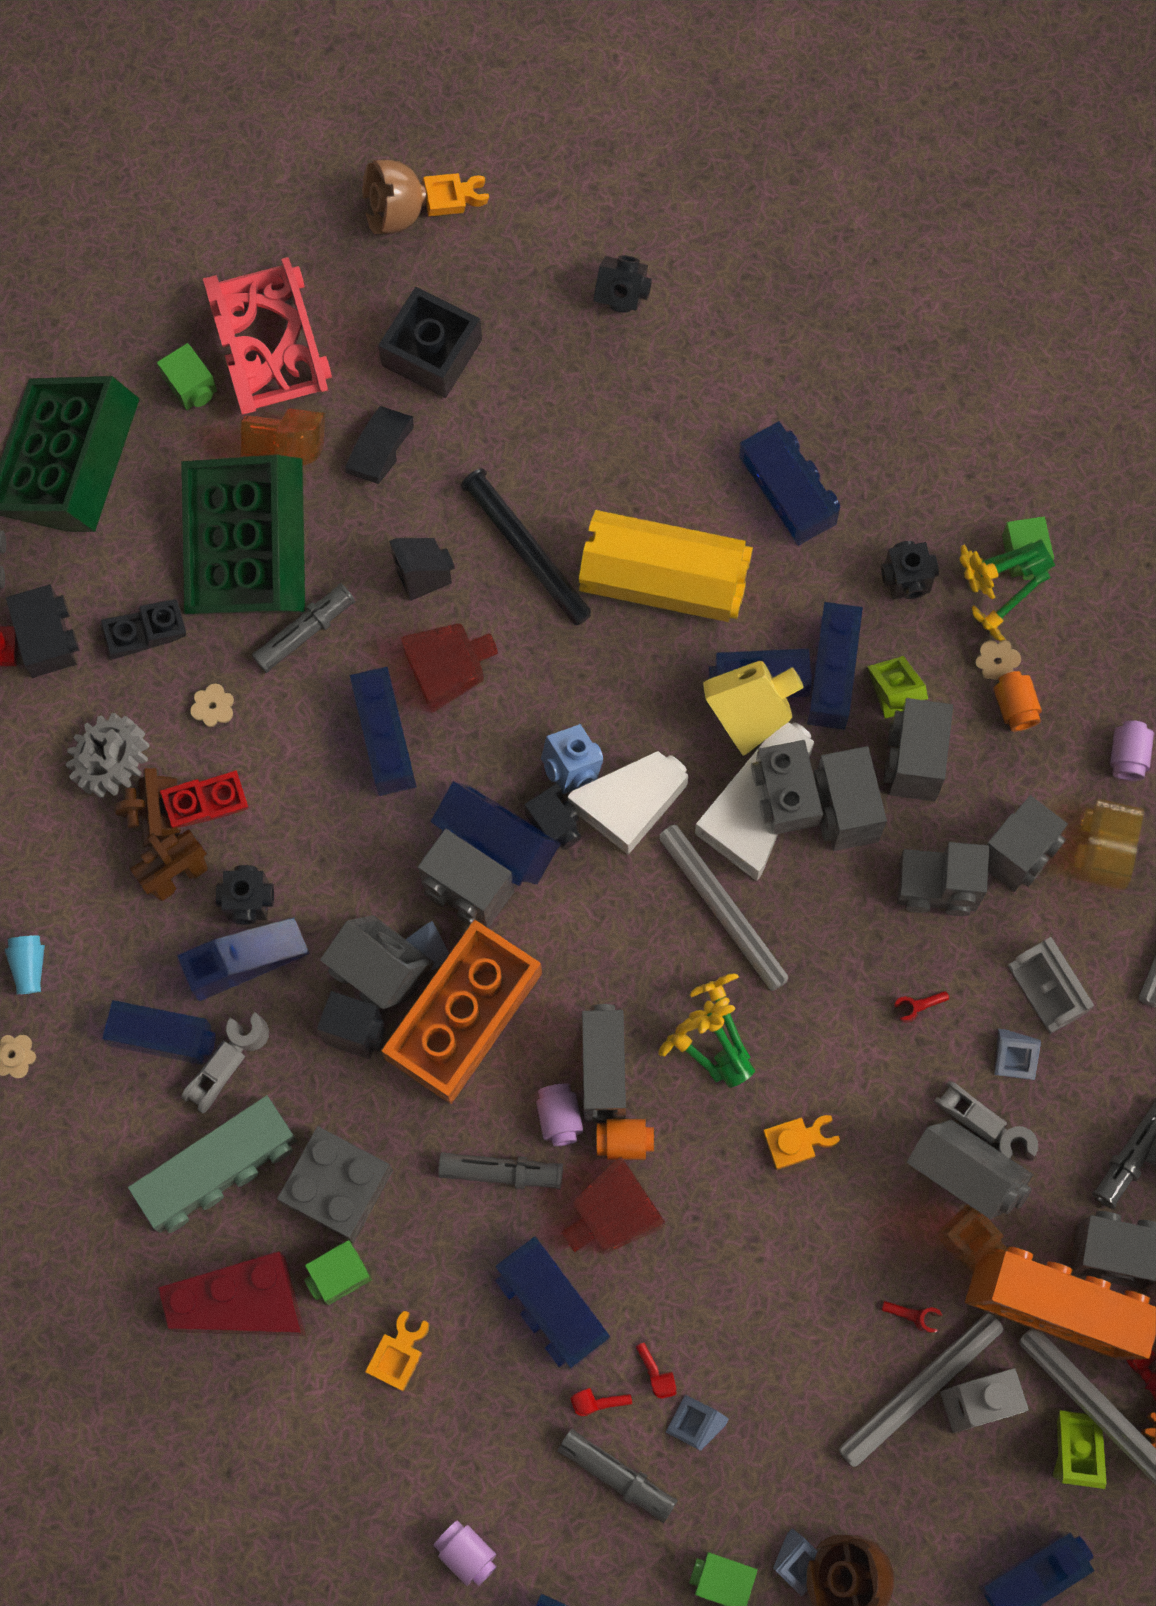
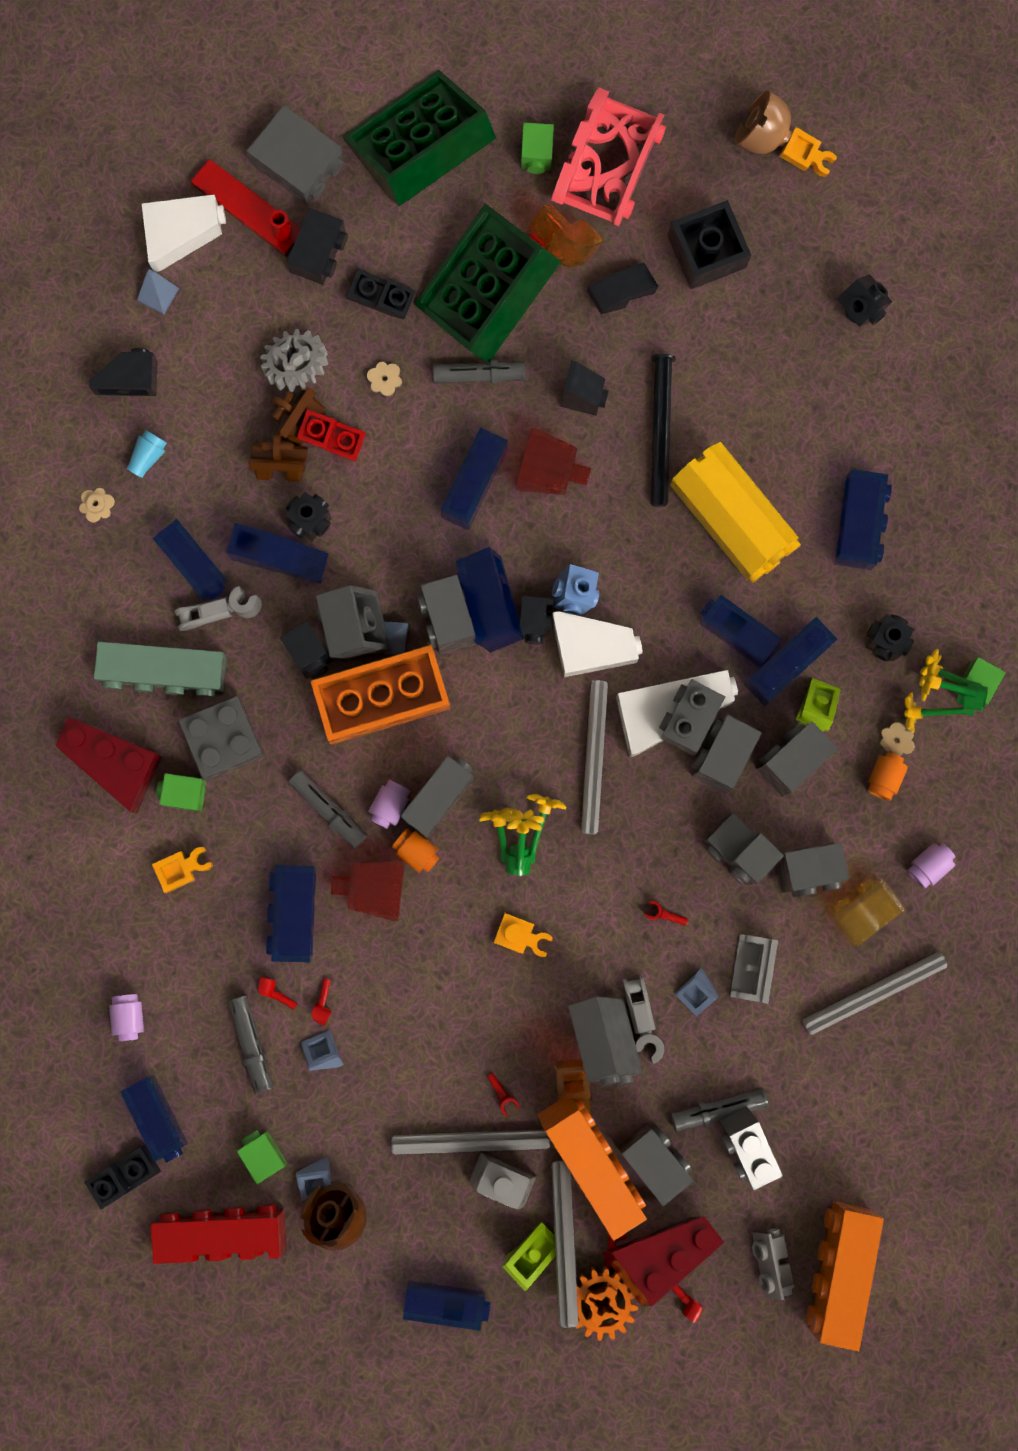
camera: 30 degrees right, 10 degrees up
(752, 702) = (715, 644): light yellow torso -> none

